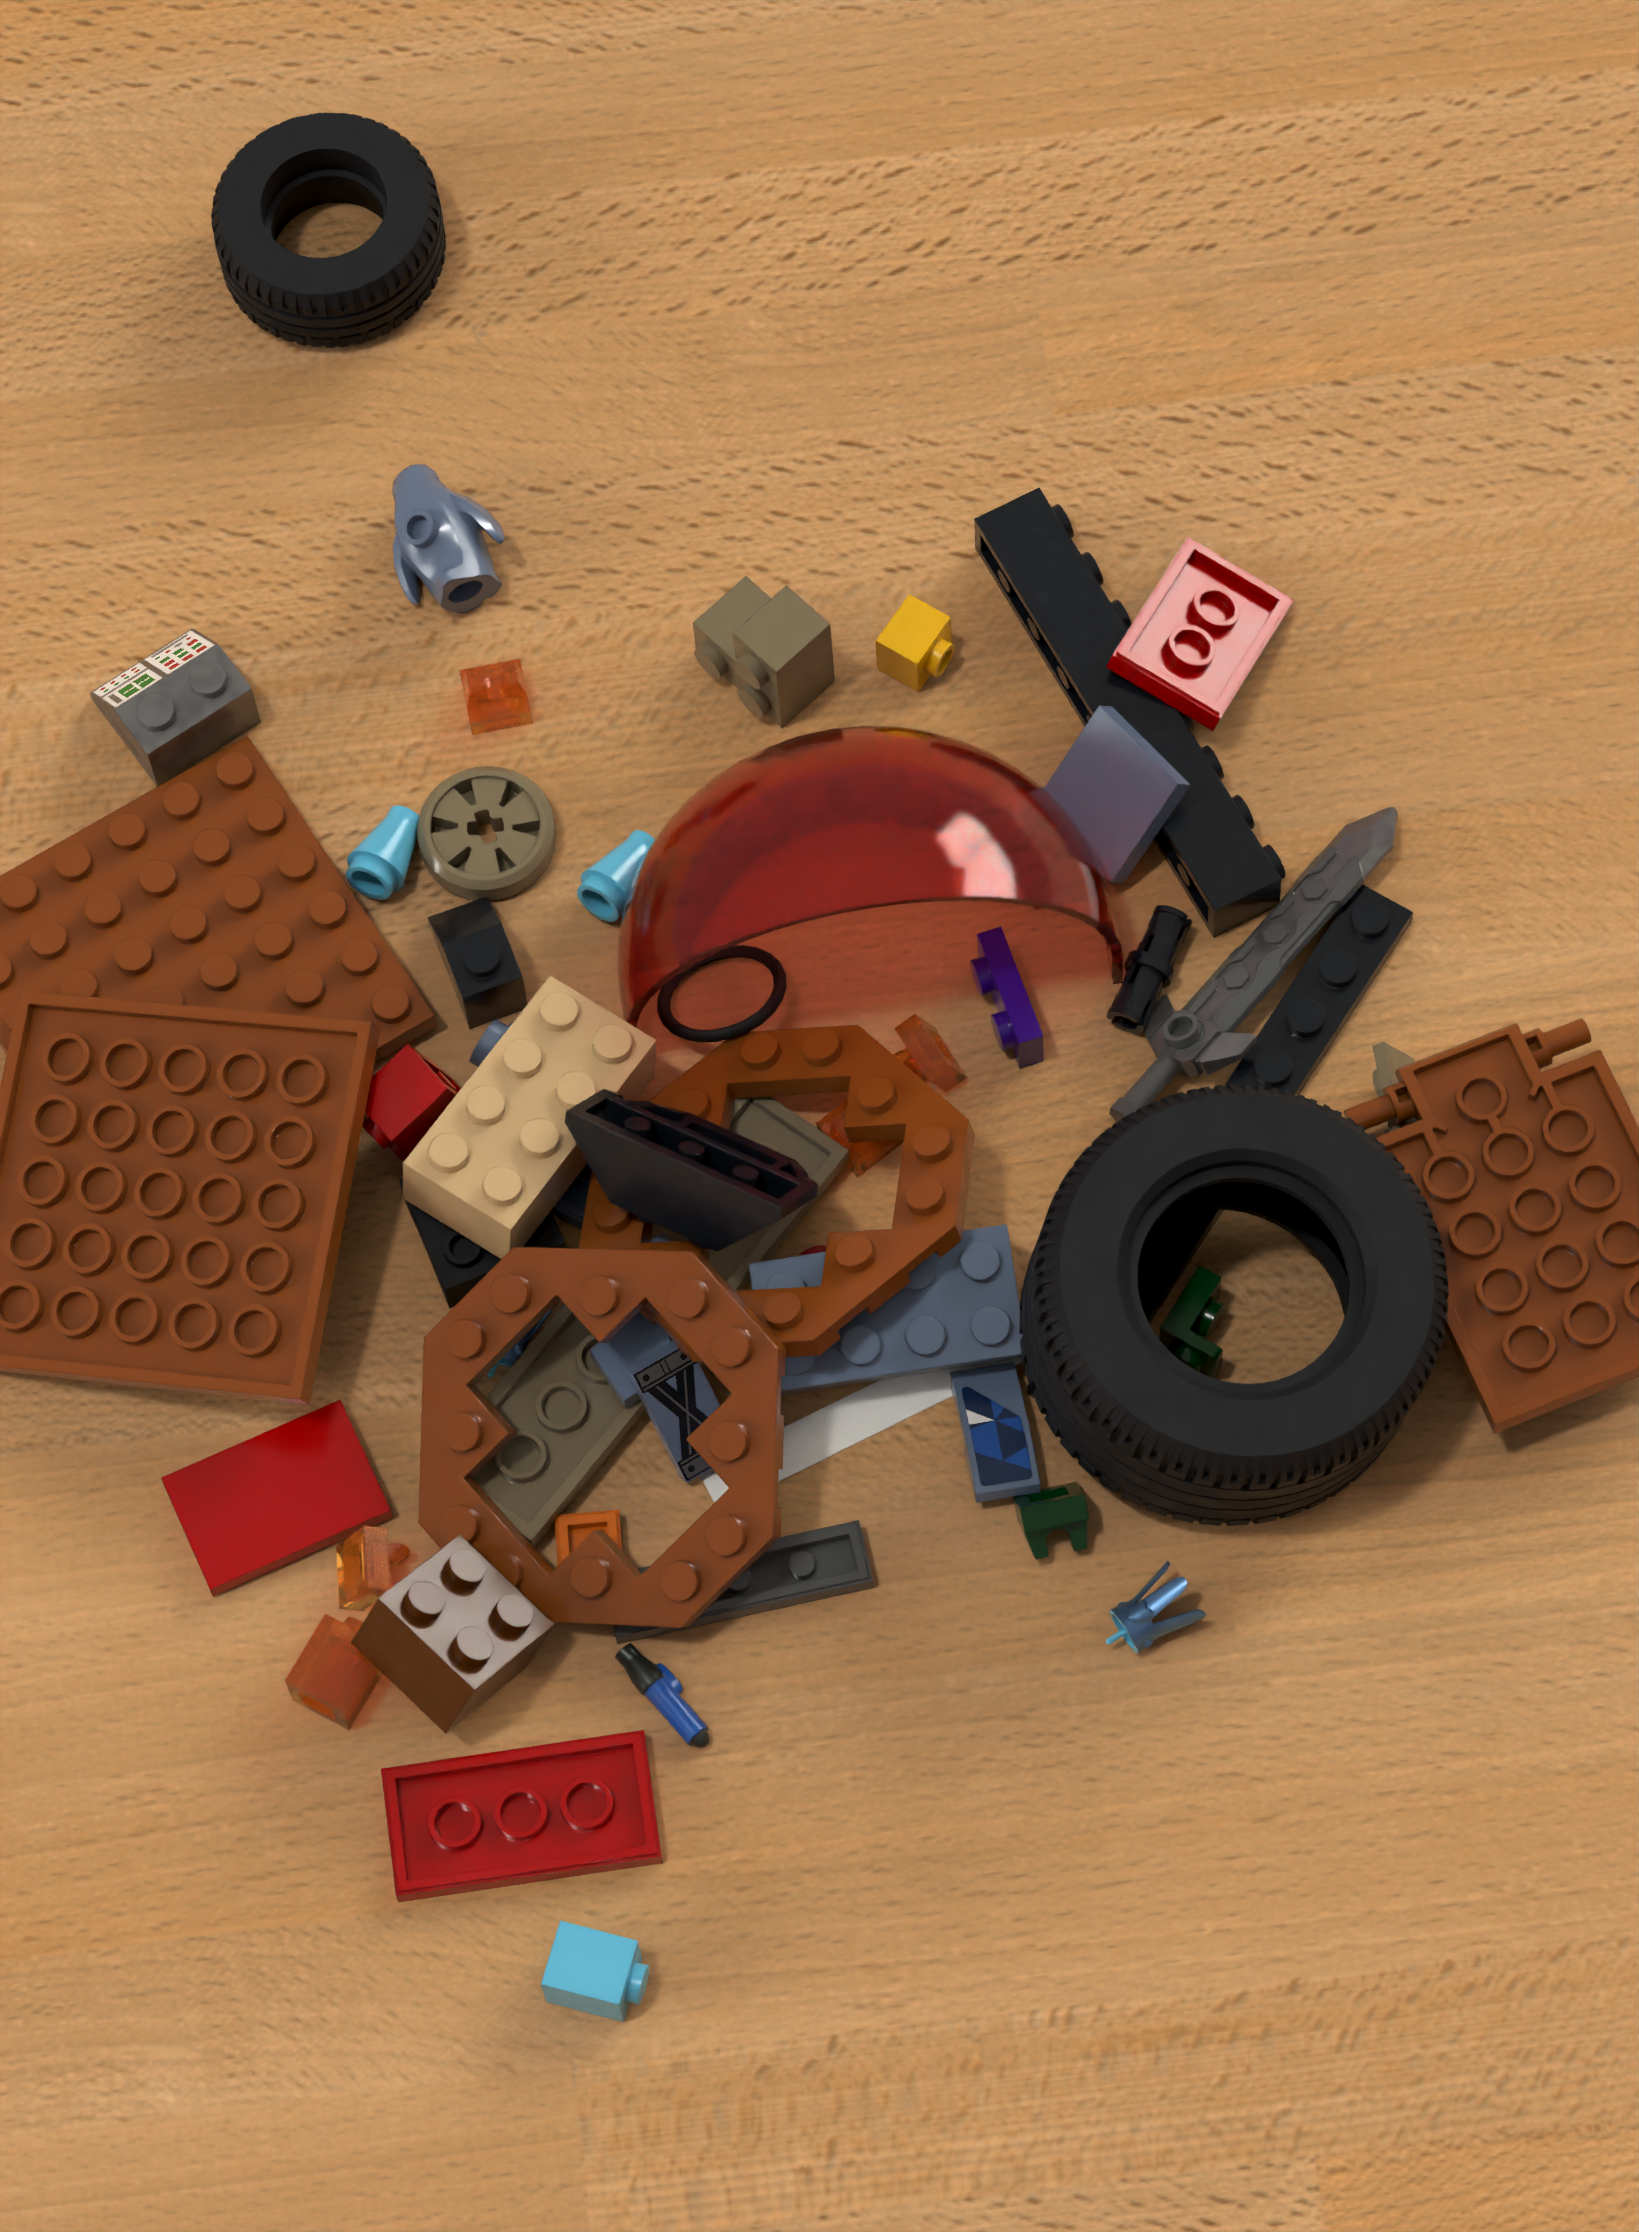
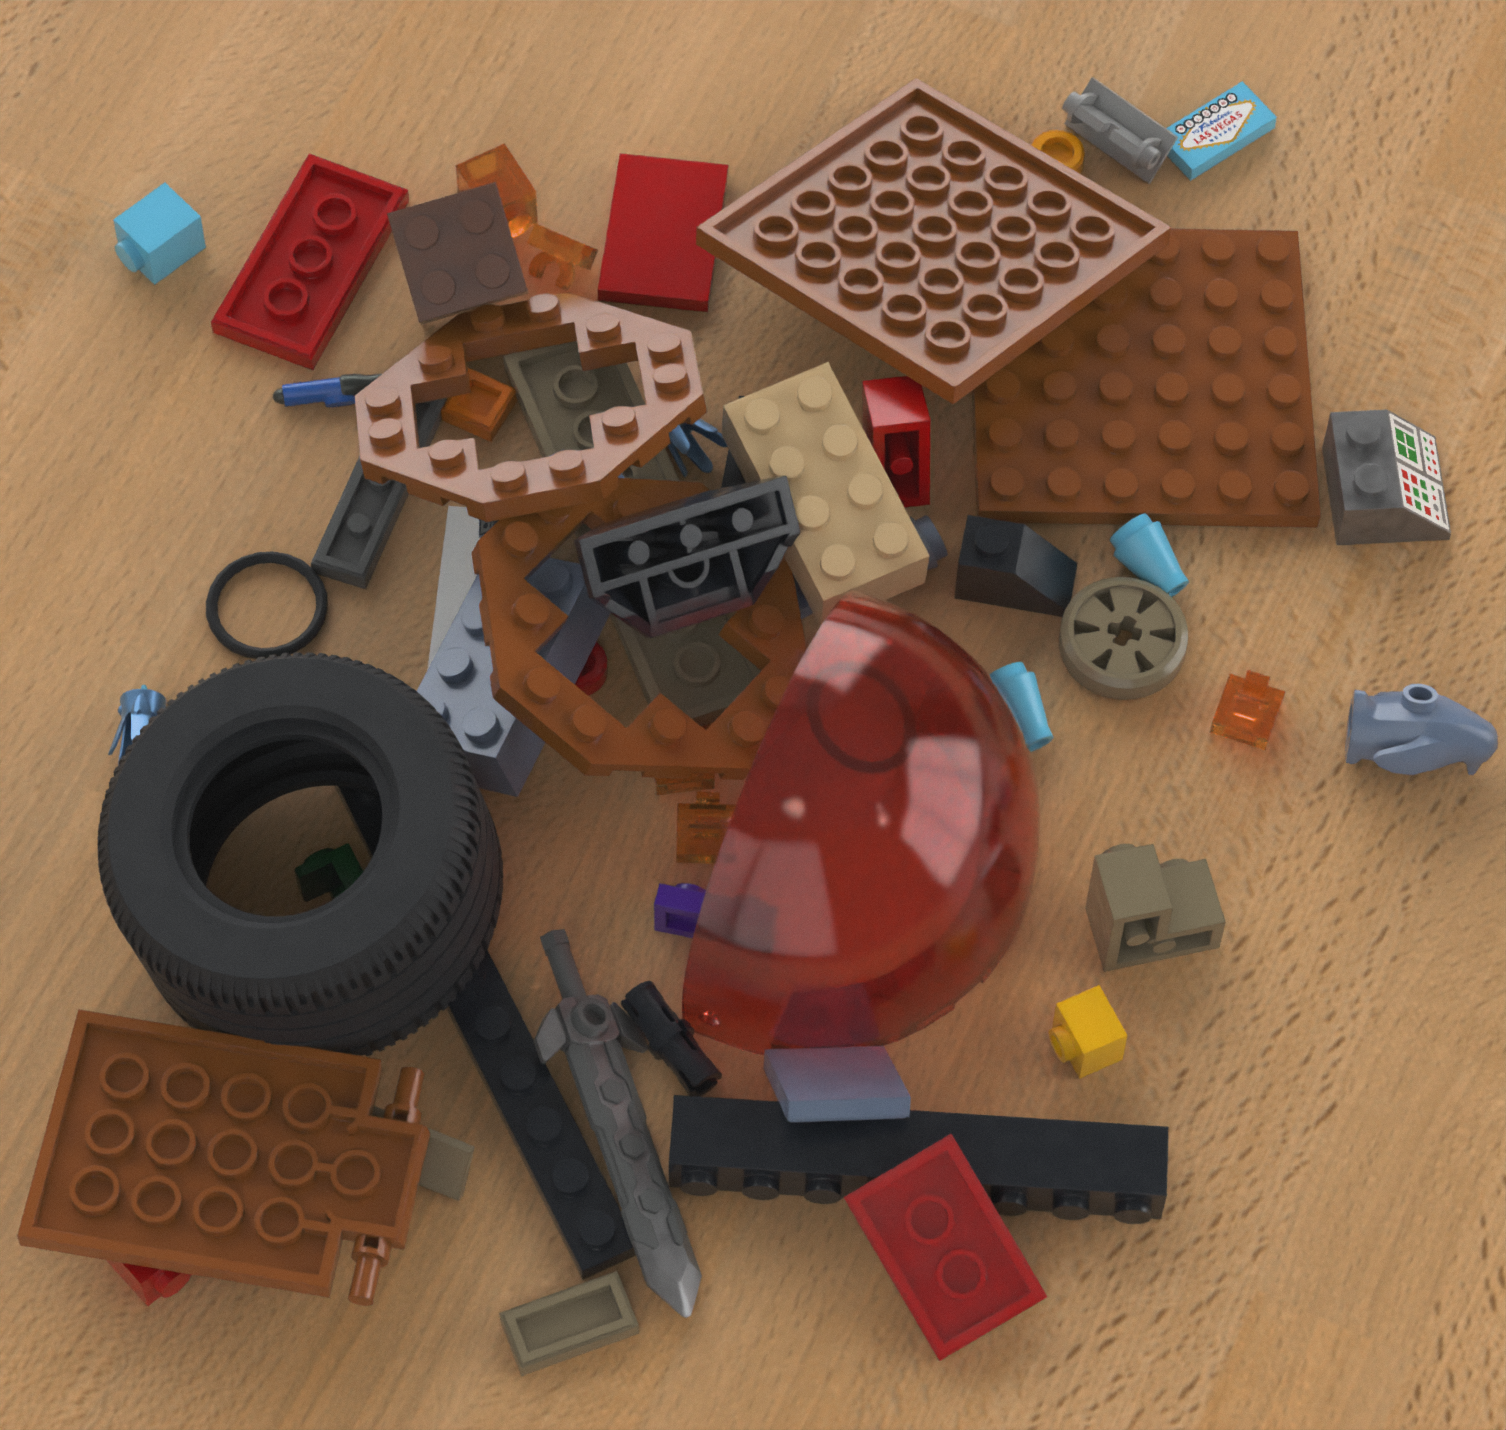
camera: 115 degrees right, 5 degrees down
(945, 1659) = (263, 558): none -> black tyre
(1461, 902) = (569, 1323): none -> dark tan tile

